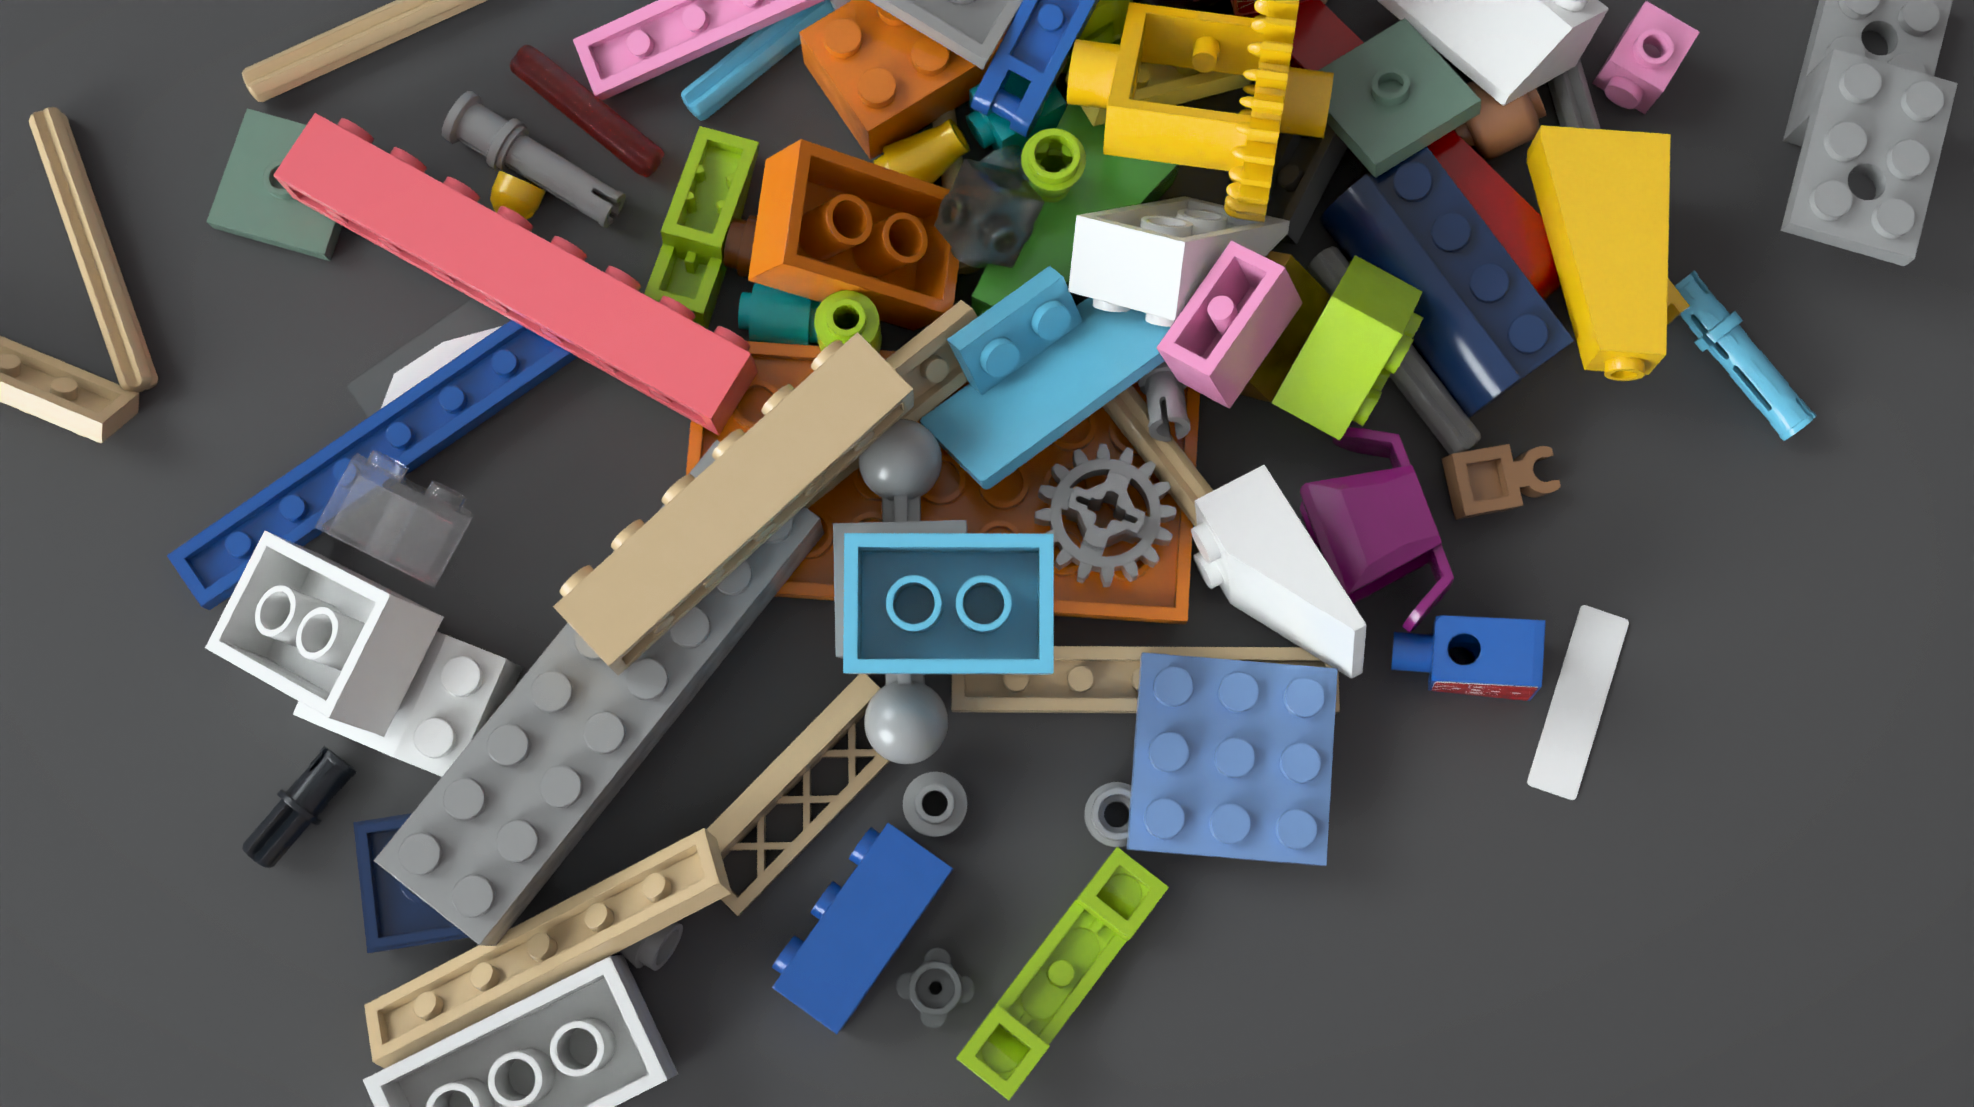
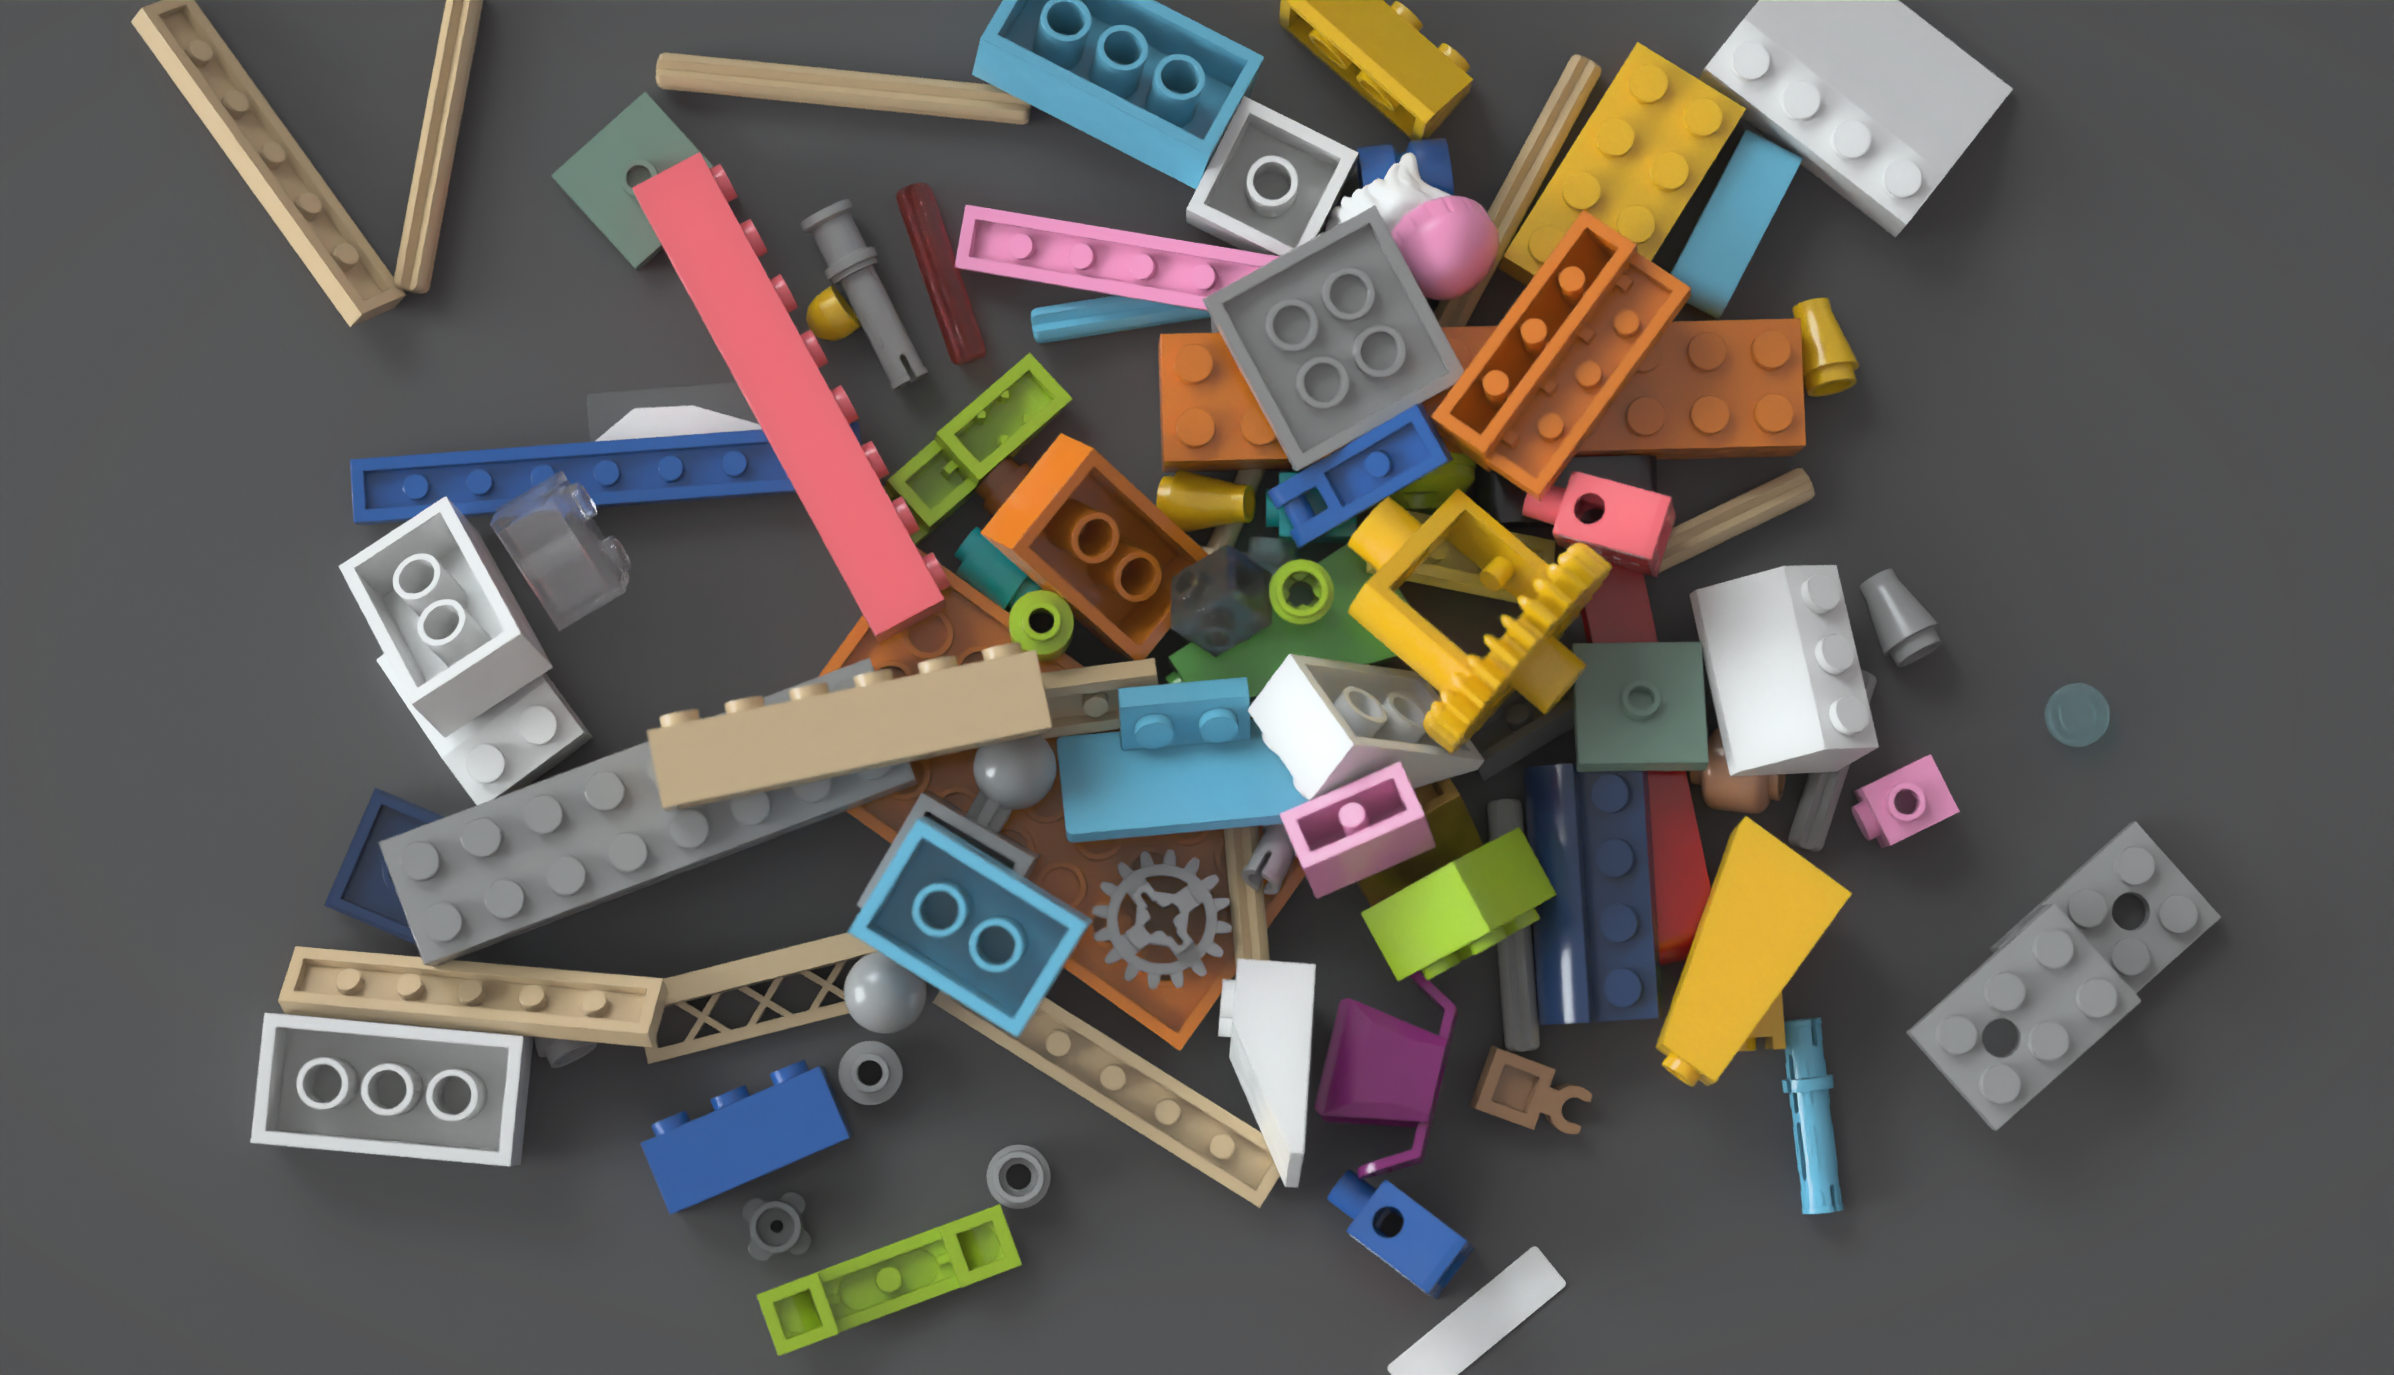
camera: 30 degrees right, 5 degrees up
(298, 808) = (337, 745): black axle -> none
(1232, 759) = (1141, 1191): medium blue plate -> none

